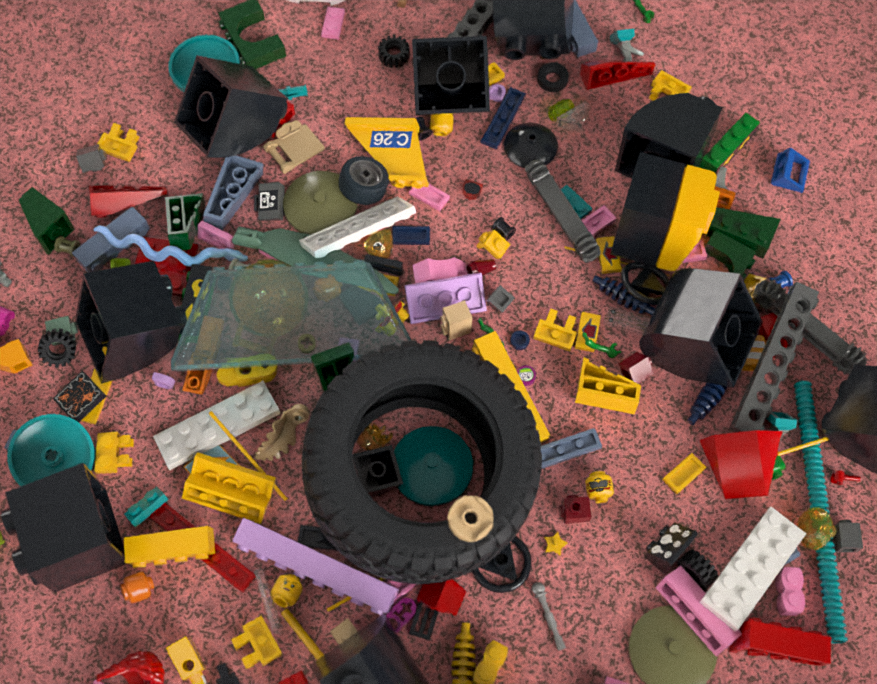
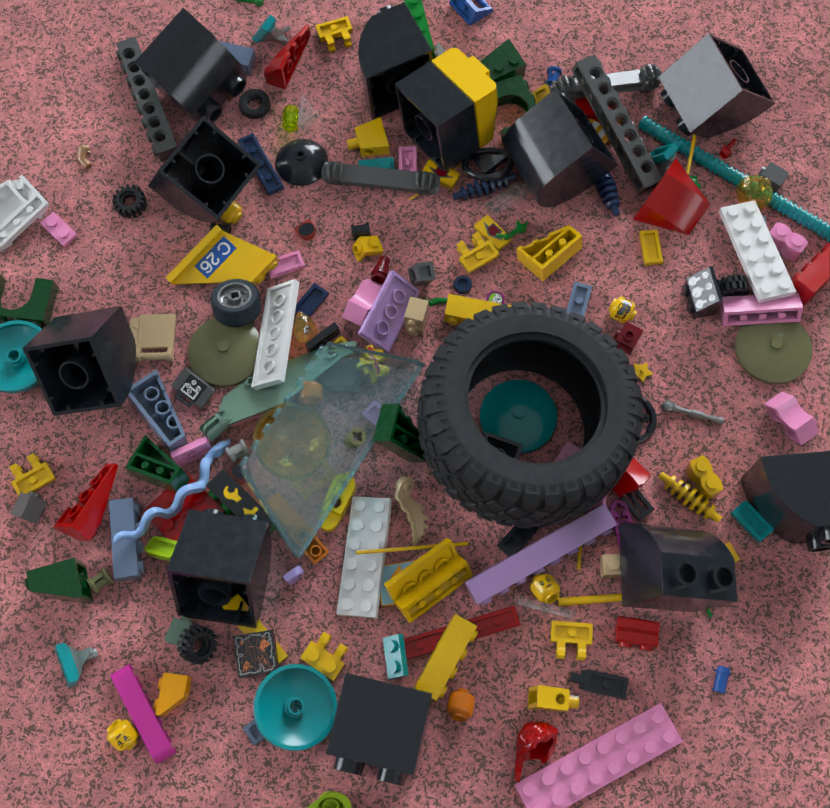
camera: 50 degrees left, 5 degrees up
(293, 92) = (103, 300): teal pin -> none
(461, 528) = (605, 410): tan tile -> none
(593, 179) = (370, 139): none -> yellow torso
(636, 367) = (549, 219): brick -> none

